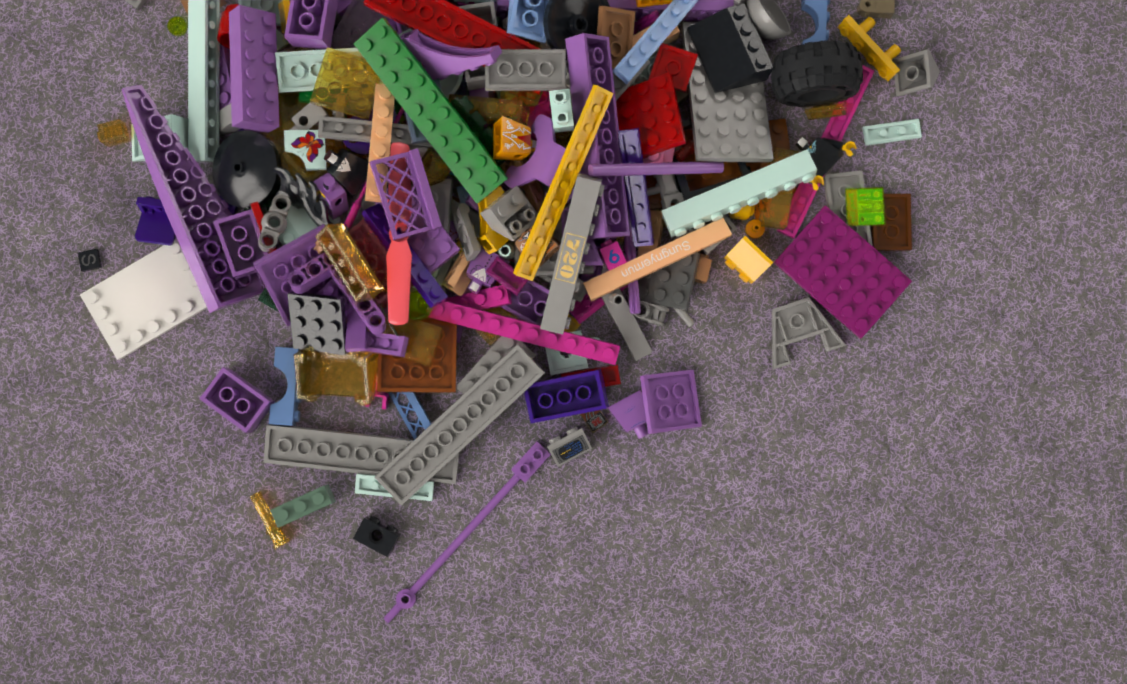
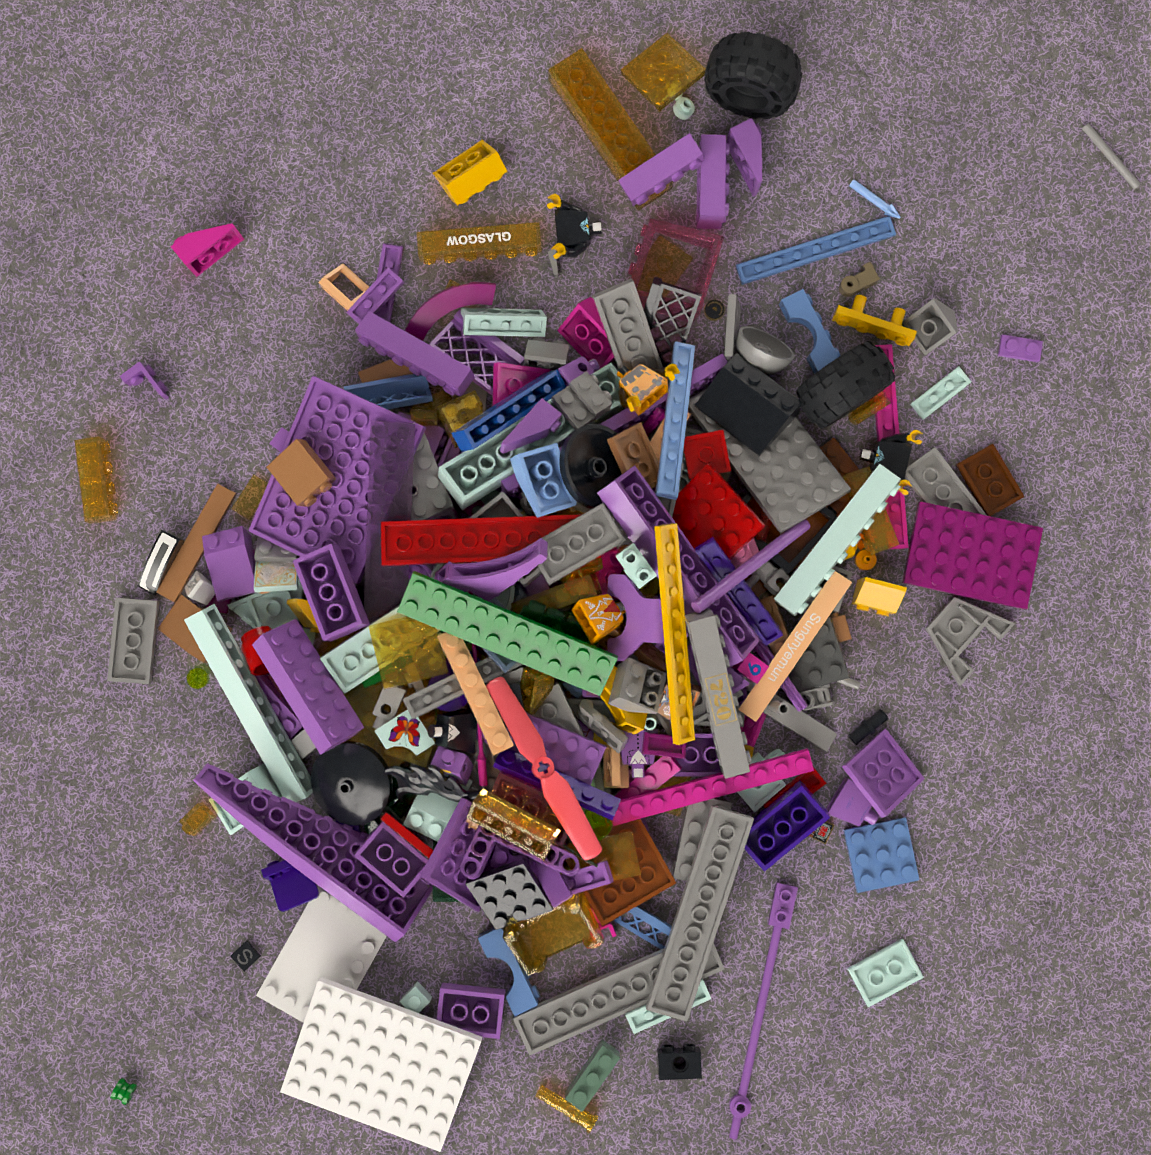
camera: 30 degrees left, 0 degrees up
(143, 400) = (380, 1064): none -> white plate
(200, 367) = (416, 998): none -> light aqua brick
(277, 214) = (414, 836): light grey piece -> none
(422, 190) = (539, 712): medium lavender fence -> none
(569, 447) = (811, 870): slope -> none
(581, 561) = (885, 972): none -> light aqua tile
(632, 467) = (881, 854): none -> medium blue plate
(680, 360) = (868, 727): none -> black pin
(865, 206) = (958, 480): clear neon green piece -> none
(976, 132) = (1020, 348): none -> medium lavender plate

